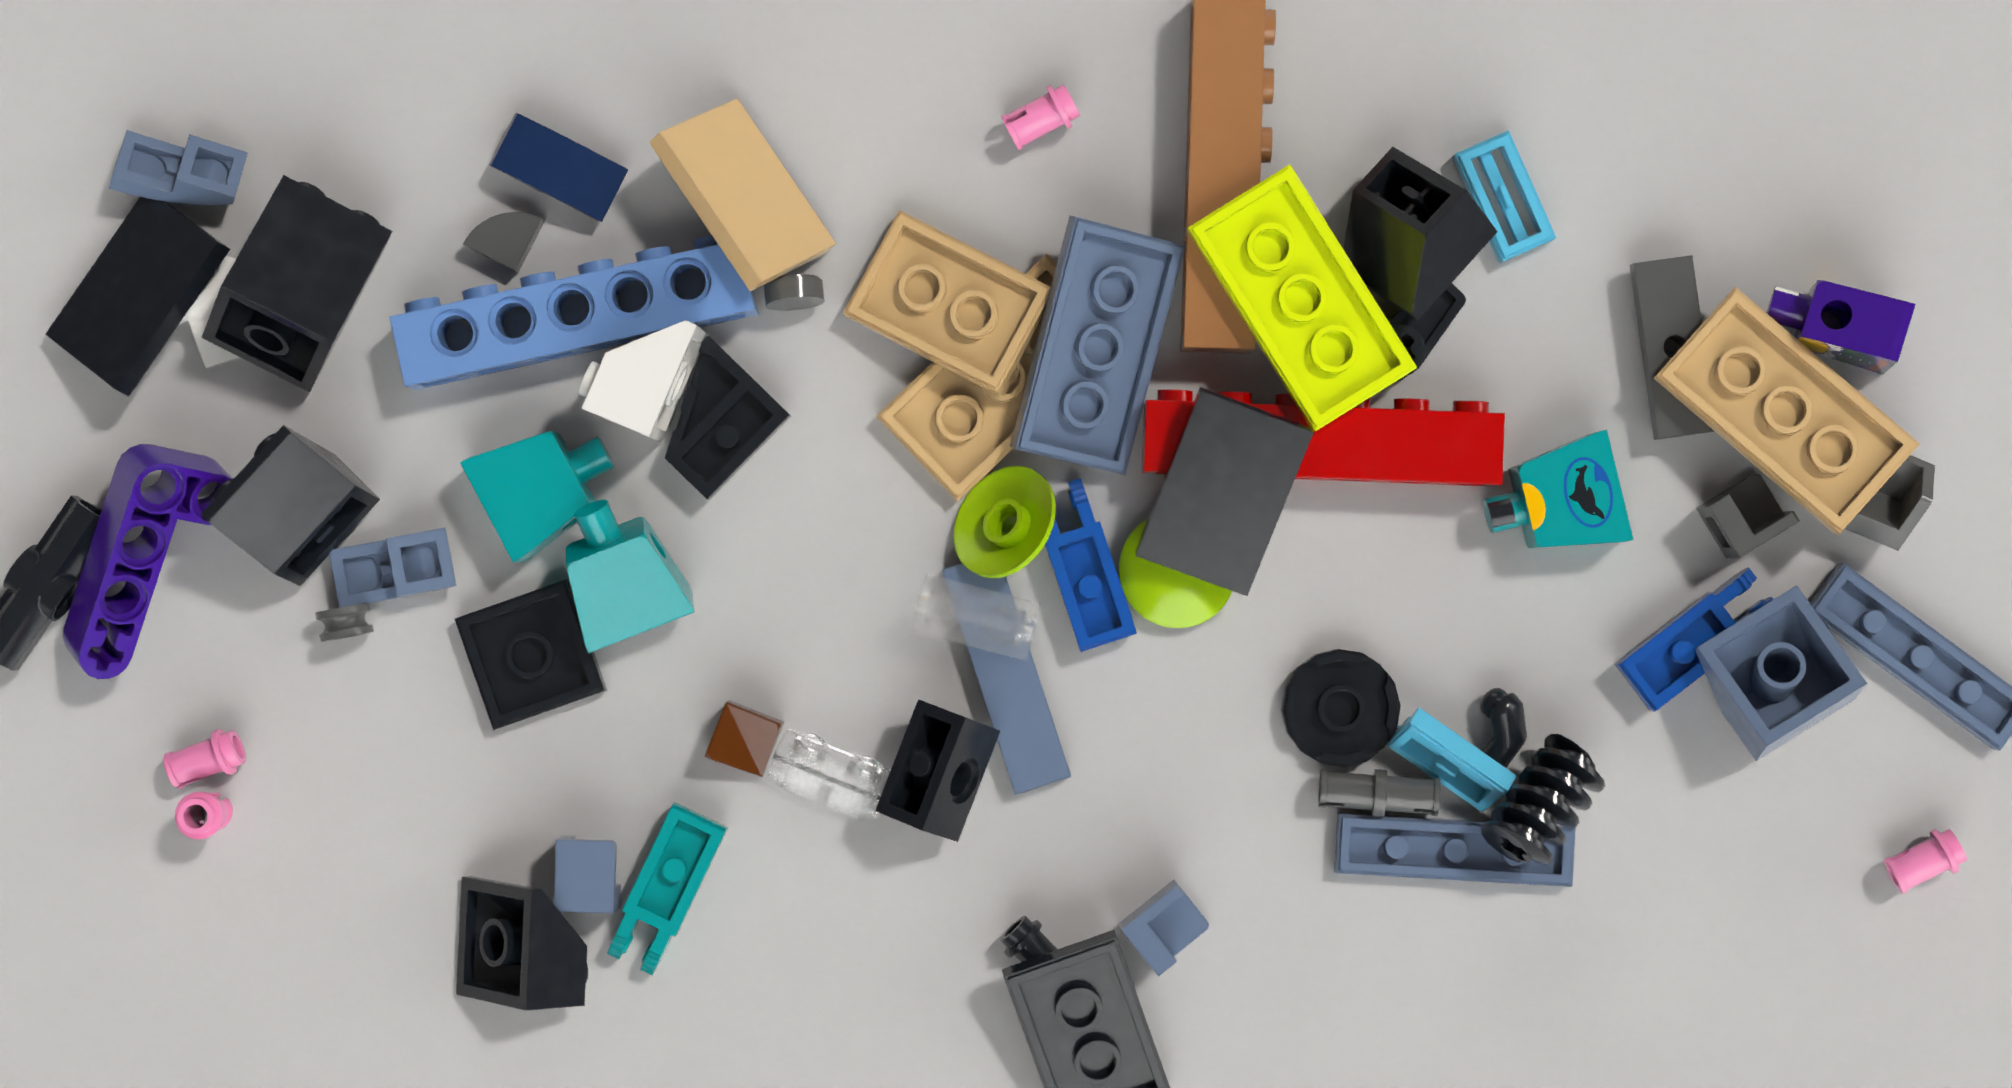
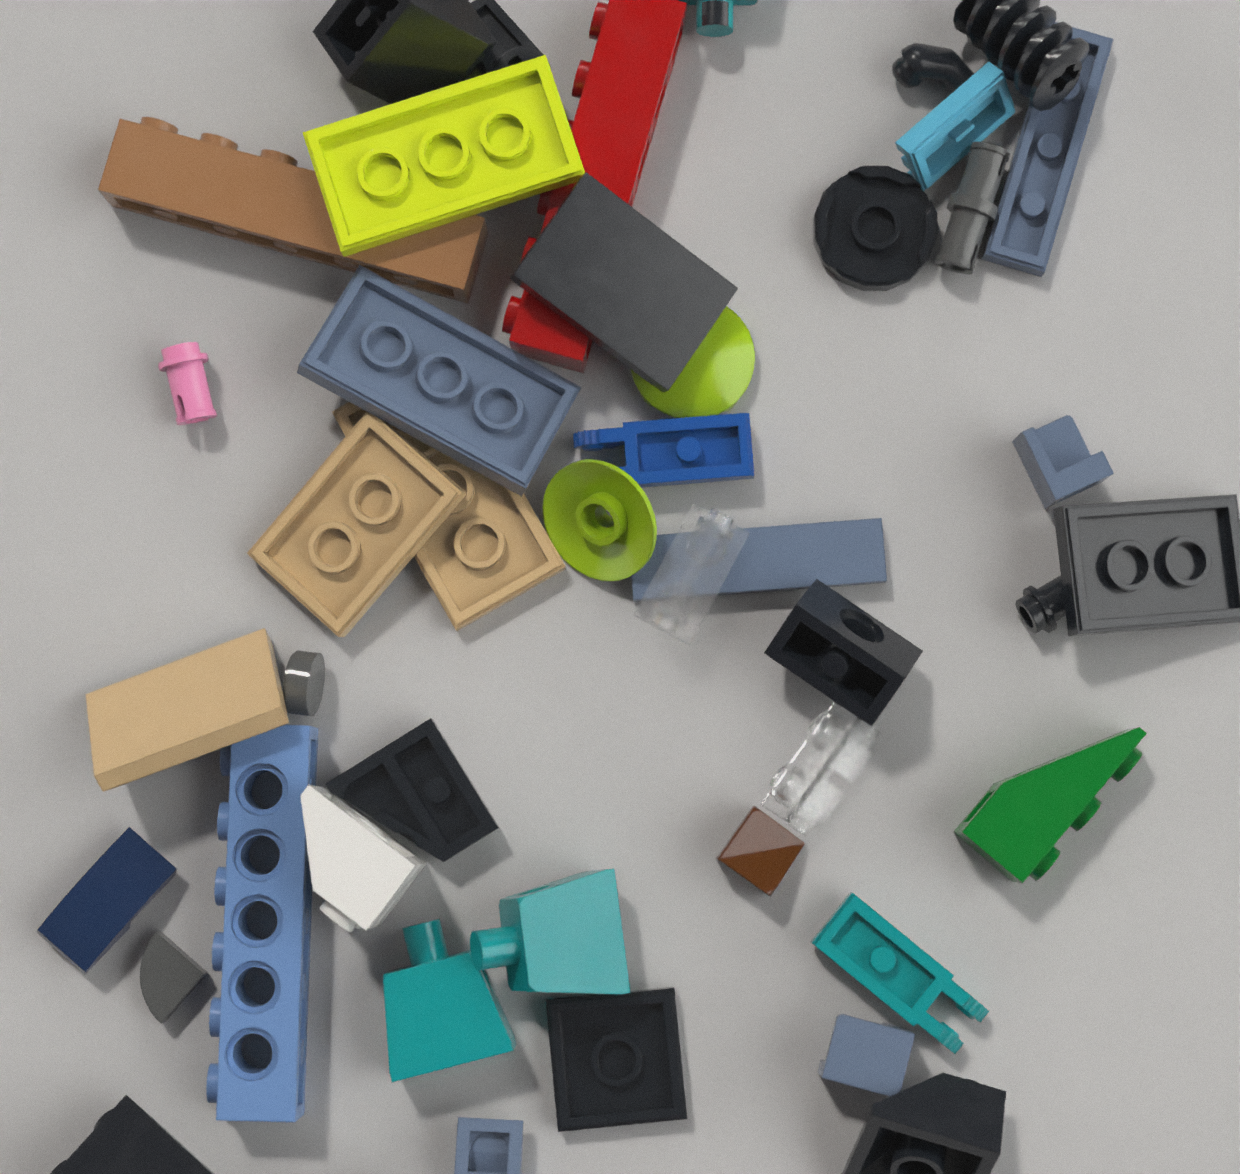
camera: 75 degrees left, 5 degrees down
(841, 973) = (1031, 810): none -> green slope

